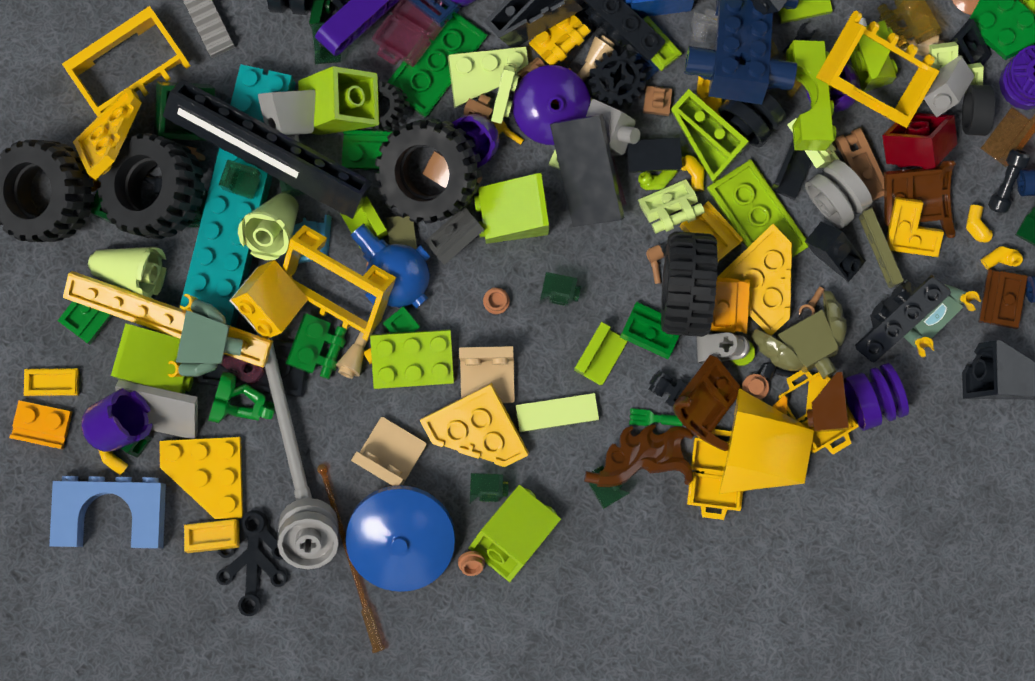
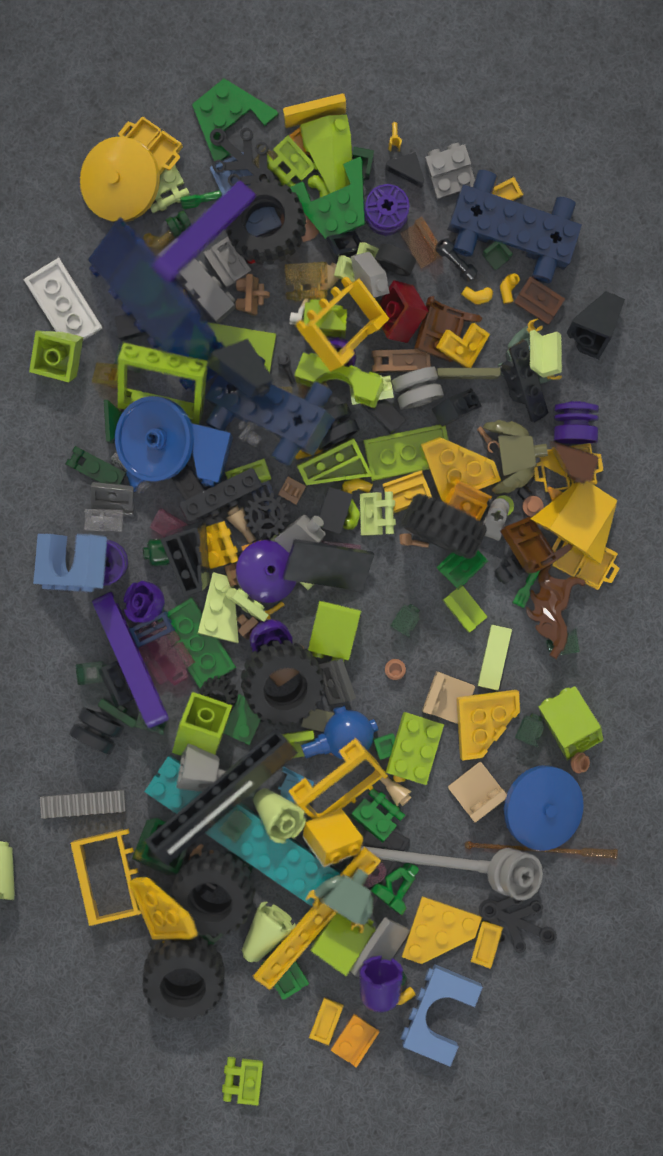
camera: 70 degrees left, 5 degrees up
(944, 324) = (545, 353): none -> yellowish green panel

